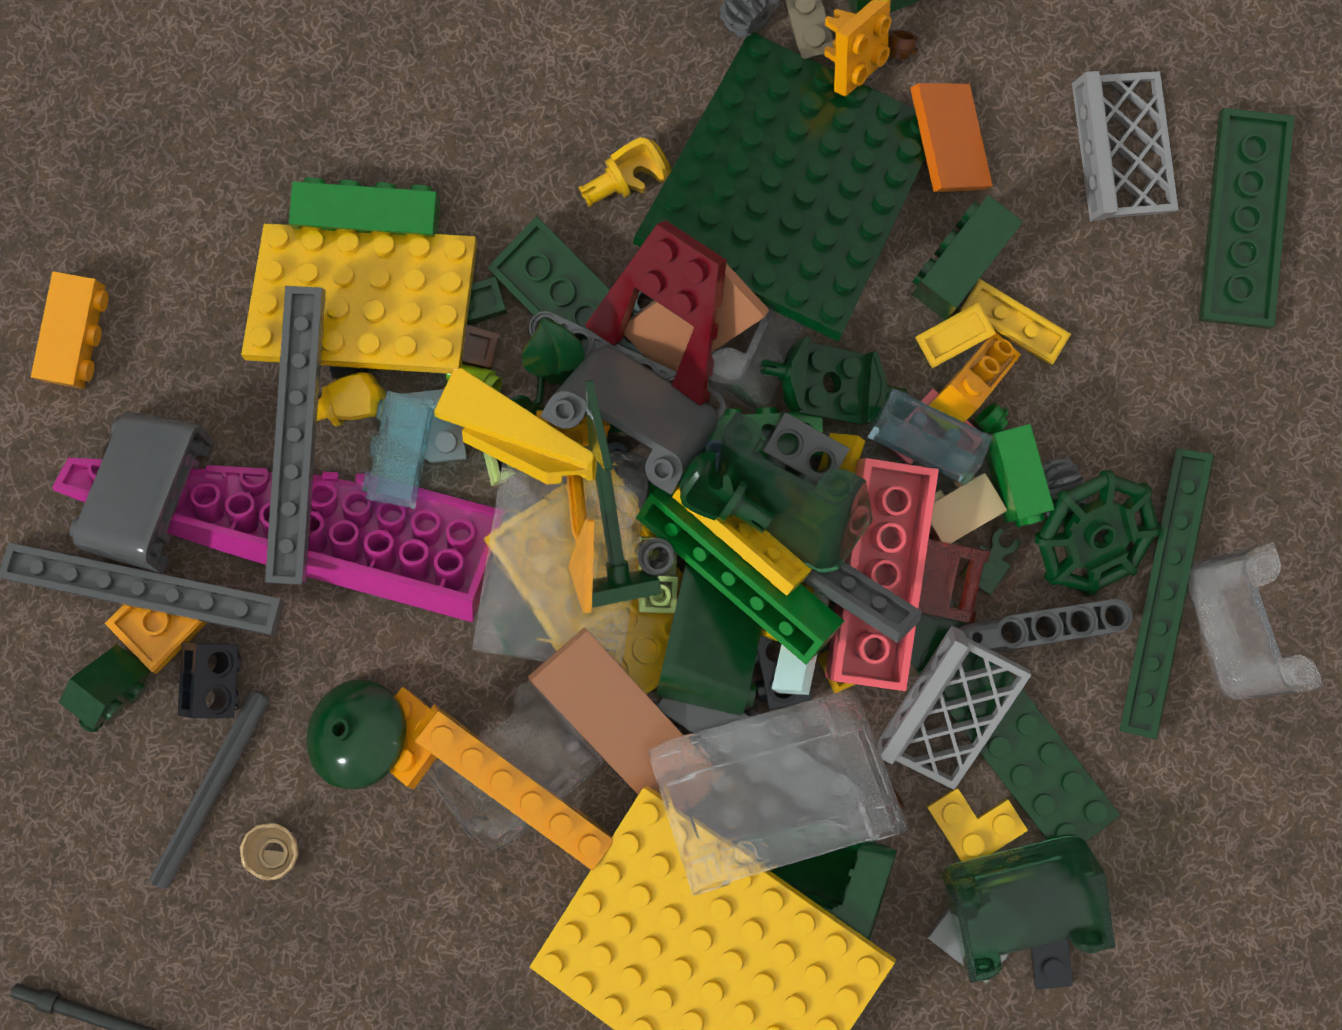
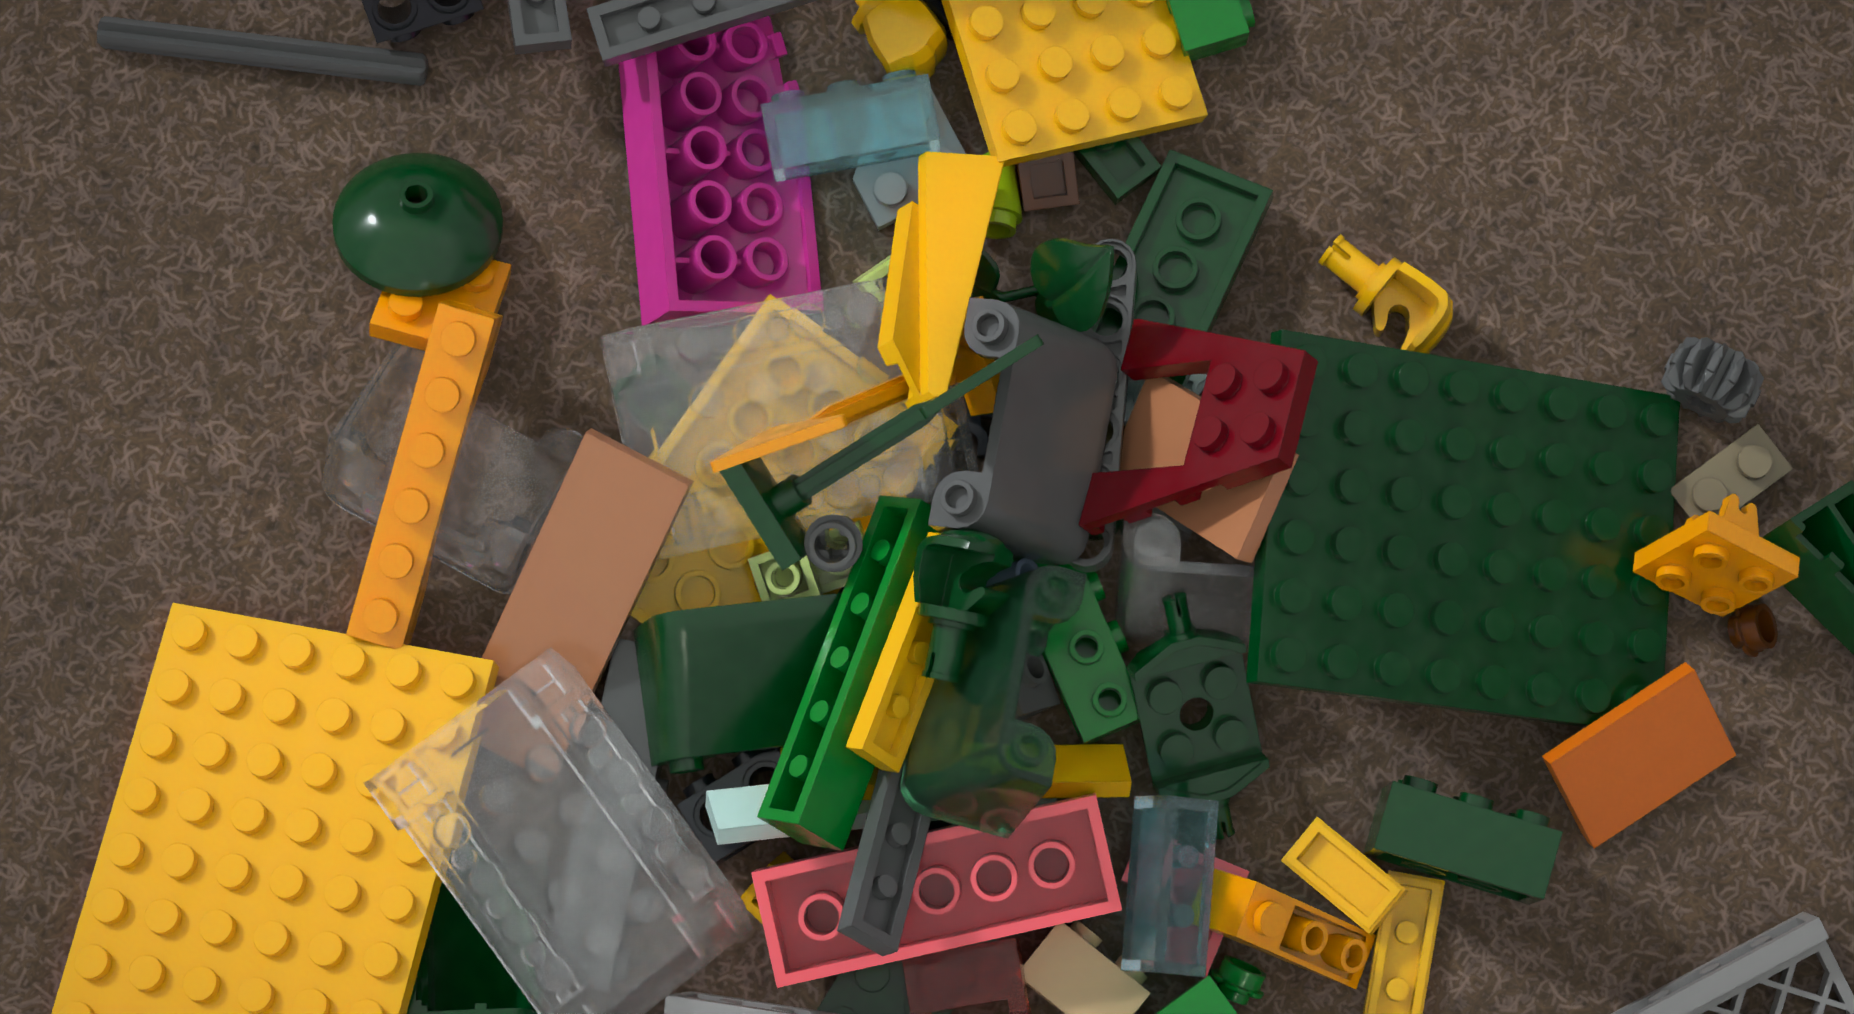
camera: 70 degrees right, 5 degrees down
(267, 863) = (186, 173): tan hair -> none
(808, 442) = (1093, 707): dark grey brick -> none

